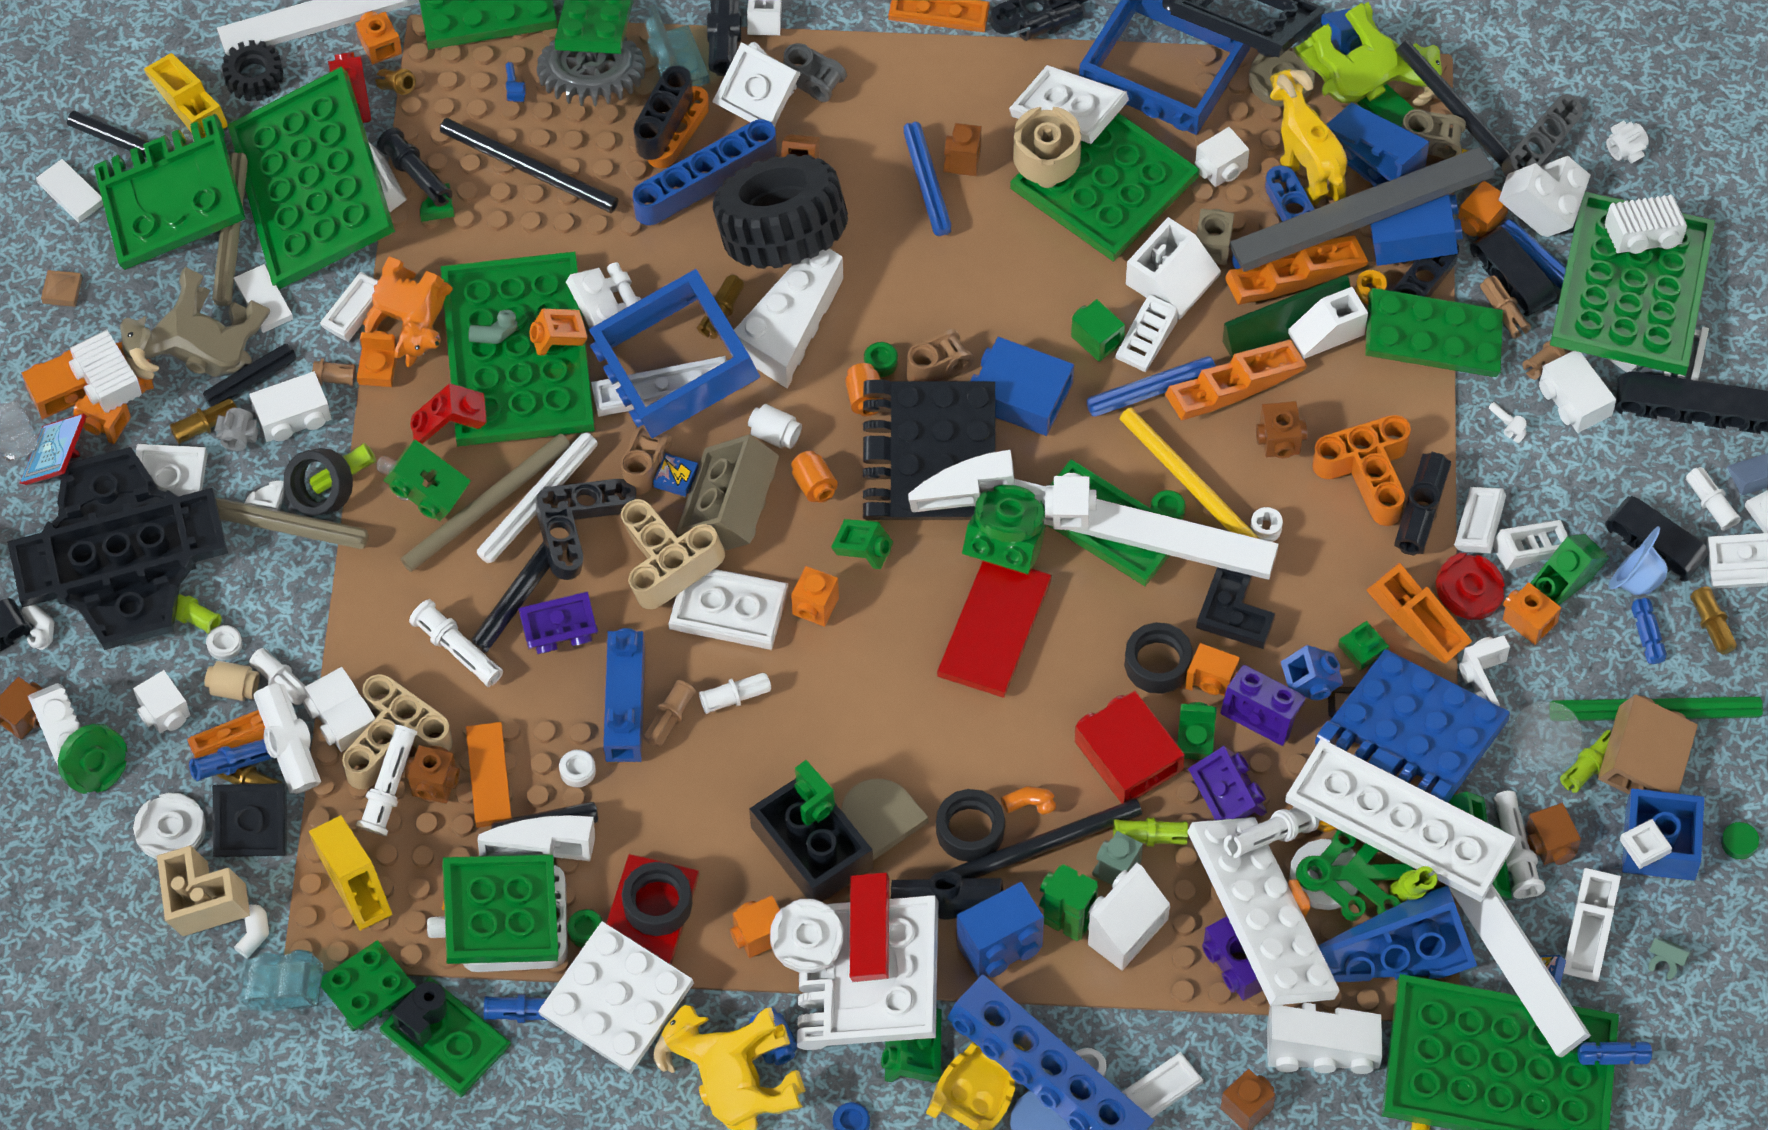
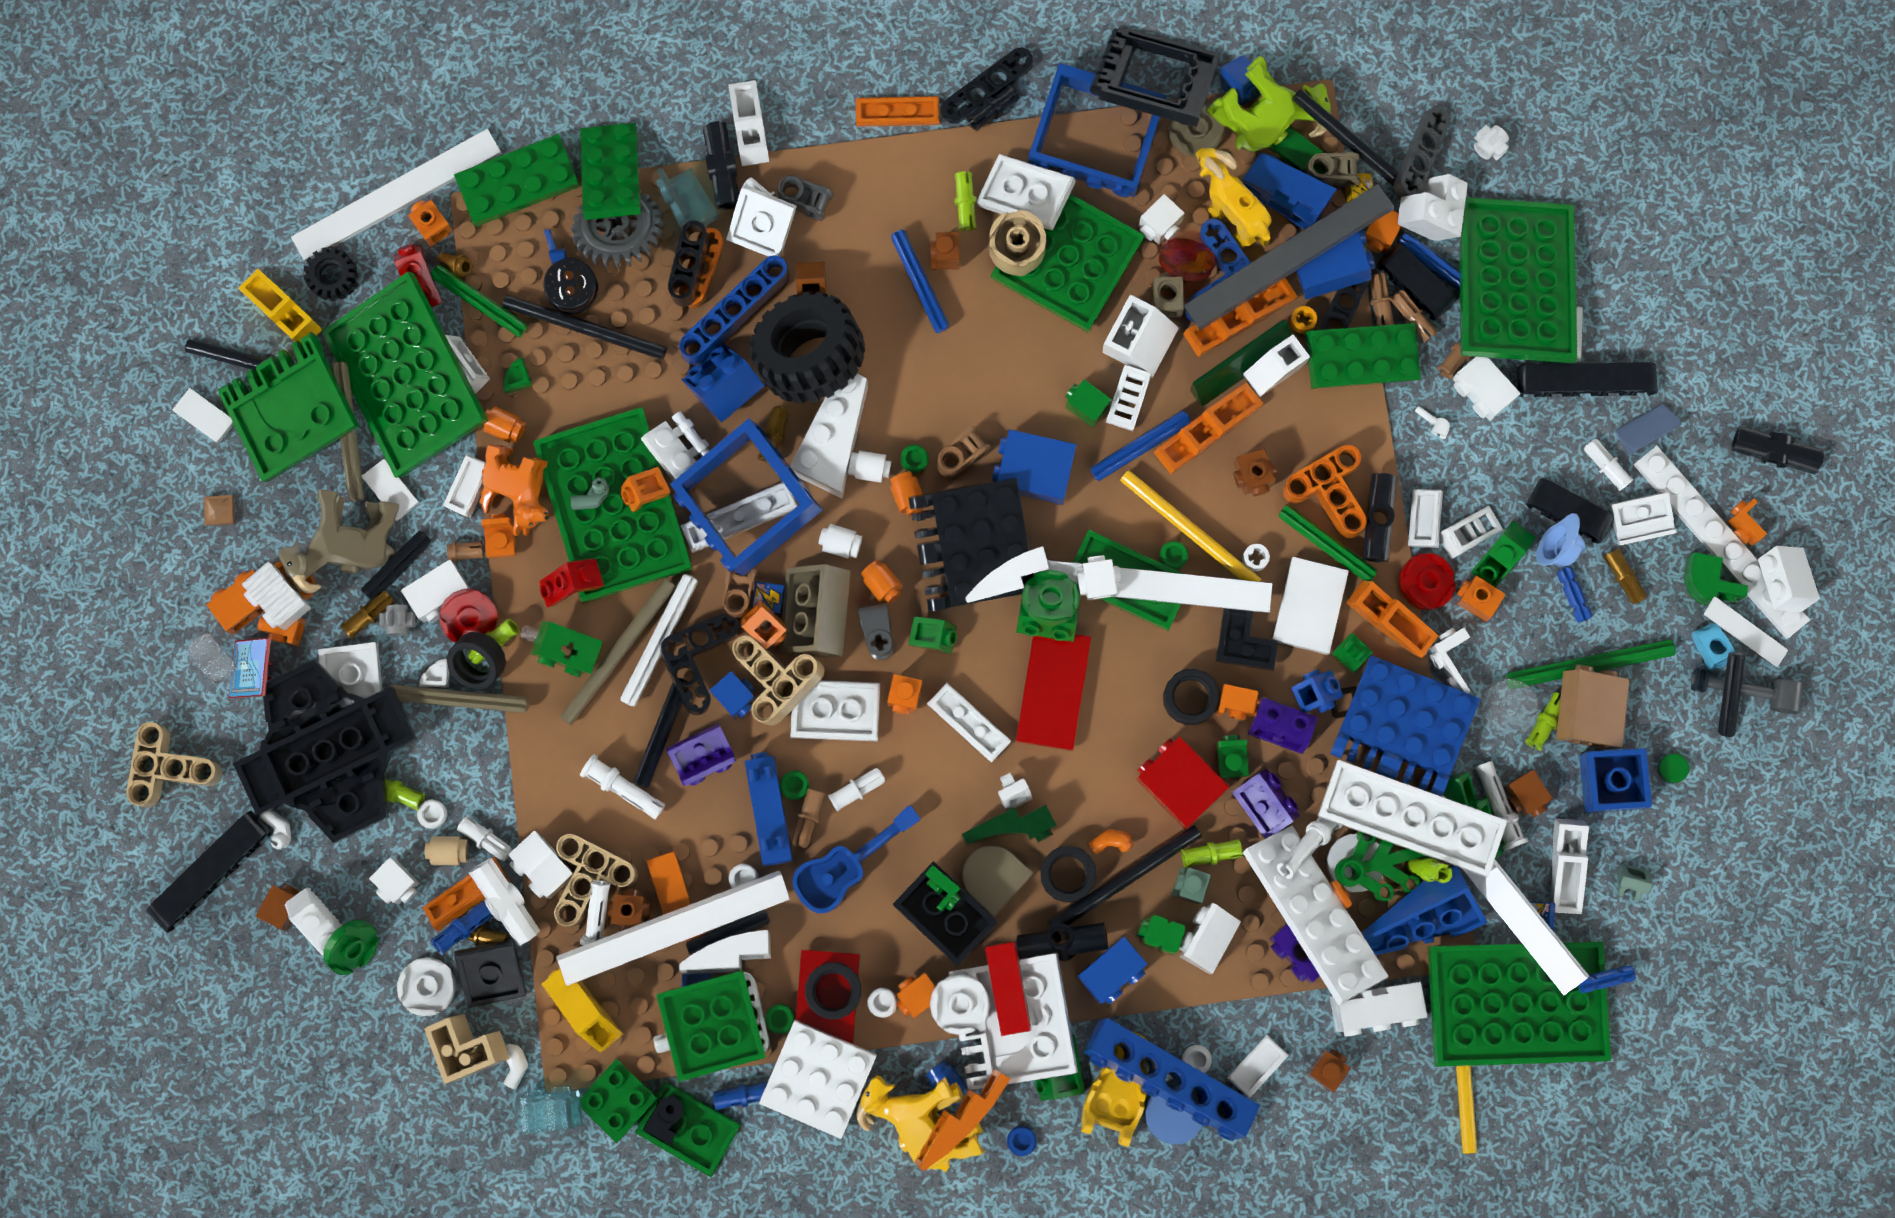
camera: 10 degrees left, 20 degrees up
(320, 428) = (466, 613): none -> red tile
(407, 159) = (482, 342): black pin -> none
(411, 246) = (504, 425): none -> orange brick
(414, 120) = (479, 300): none -> green axle
(480, 795) = (672, 928): none -> white tile
(523, 120) = (570, 286): none -> black head
(610, 565) = (734, 695): none -> blue brick
(660, 484) = (765, 637): none -> orange brick
(661, 677) = (794, 785): none -> green tile
(675, 242) = (723, 382): none -> blue slope
(676, 784) = (825, 881): none -> blue piece
(713, 931) = (882, 1002): none -> white tile
(772, 1064) = (954, 1128): none -> orange slope
(797, 528) = (876, 626): none -> dark grey piece
(826, 354) = (869, 466): none -> white brick
(886, 645) = (969, 722): none -> white tile
(923, 725) = (1014, 792): none -> white tile
(937, 762) = (1033, 825): none -> dark green slope
(997, 105) = (965, 201): none -> lime pin
(1246, 198) = (1187, 259): none -> clear red tile
(1322, 586) = (1310, 605): none -> white tile
(1354, 522) = (1327, 543): none -> green axle
(1468, 281) = (1381, 299): none -> medium nougat axle
(1645, 224) = (1522, 226): white brick -> none
(1645, 844) = (1607, 801): white tile -> none

